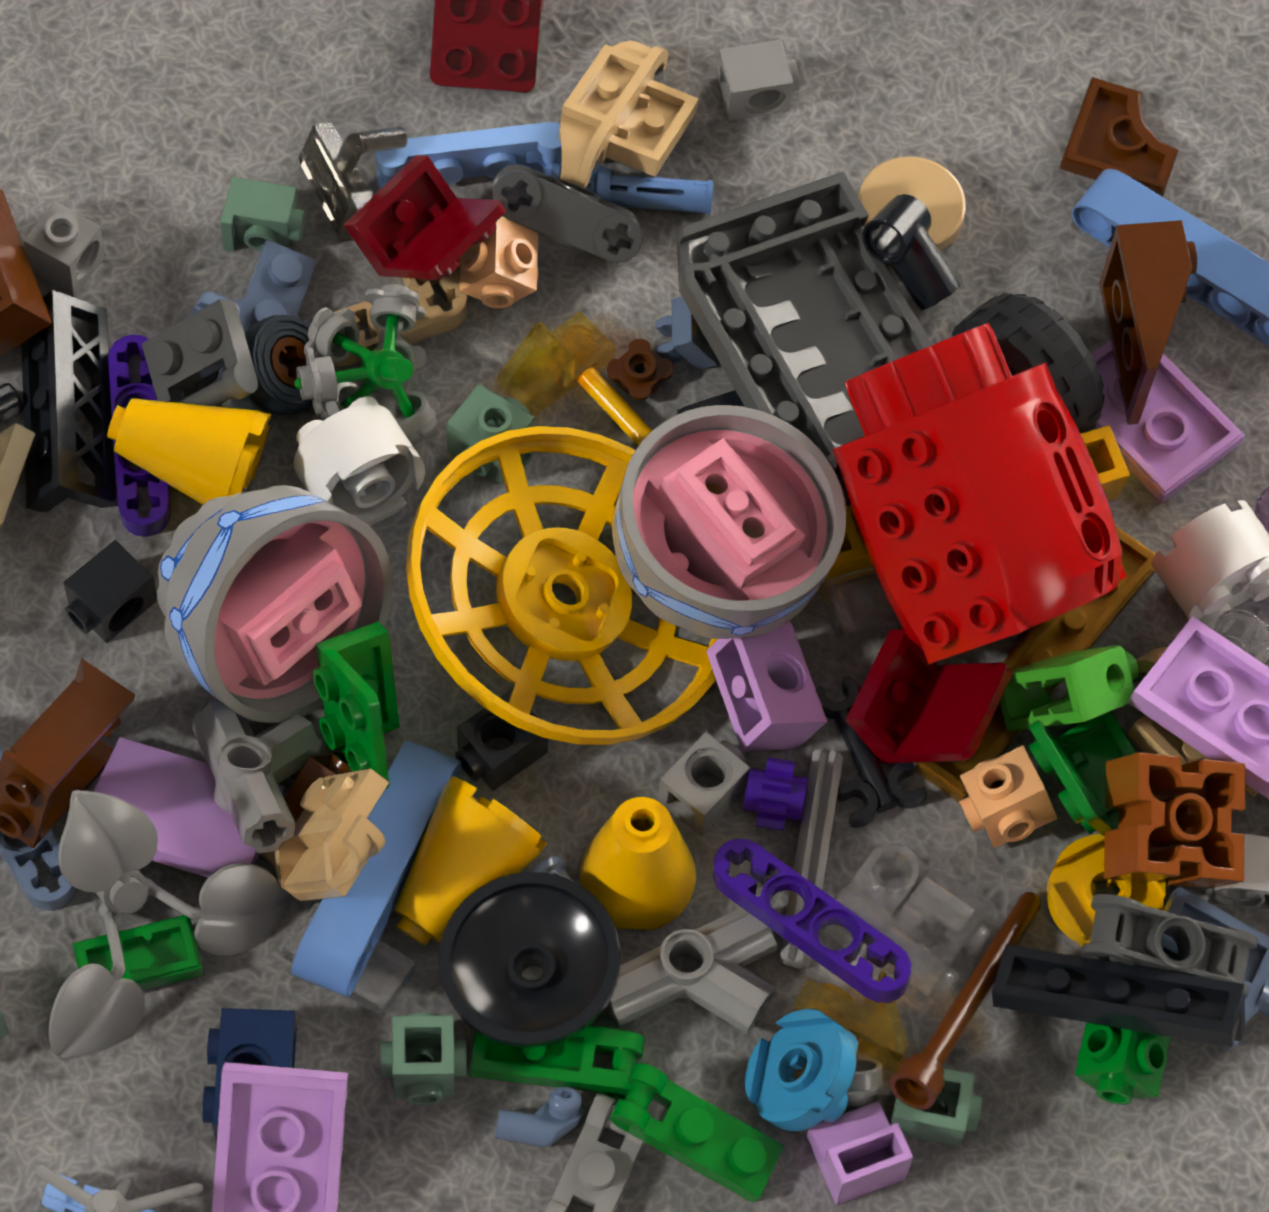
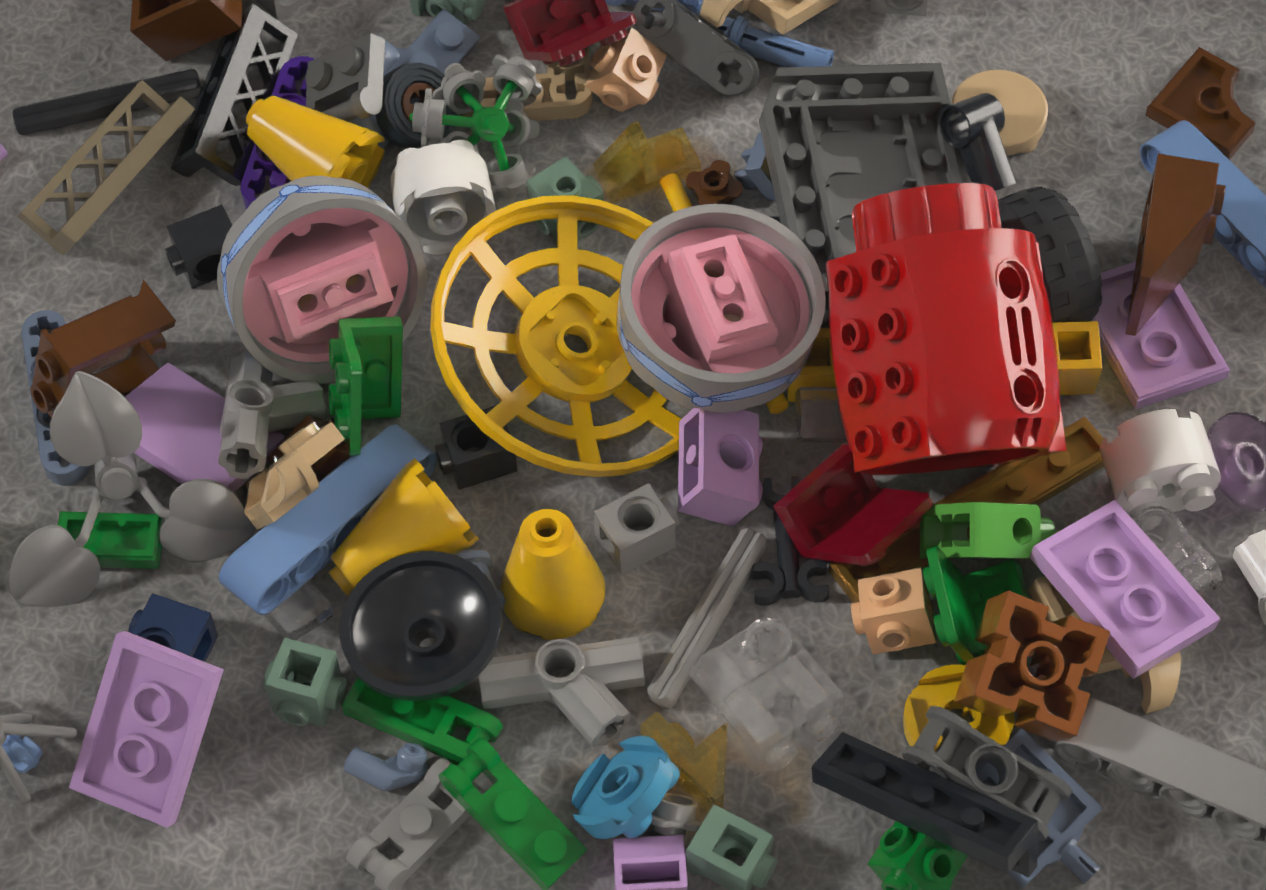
camera: 25 degrees right, 5 degrees down
(775, 794) = (692, 553): dark purple gear -> none
(818, 912) = (682, 658): dark purple beam -> none
(920, 1077) = (719, 820): reddish brown piece -> none

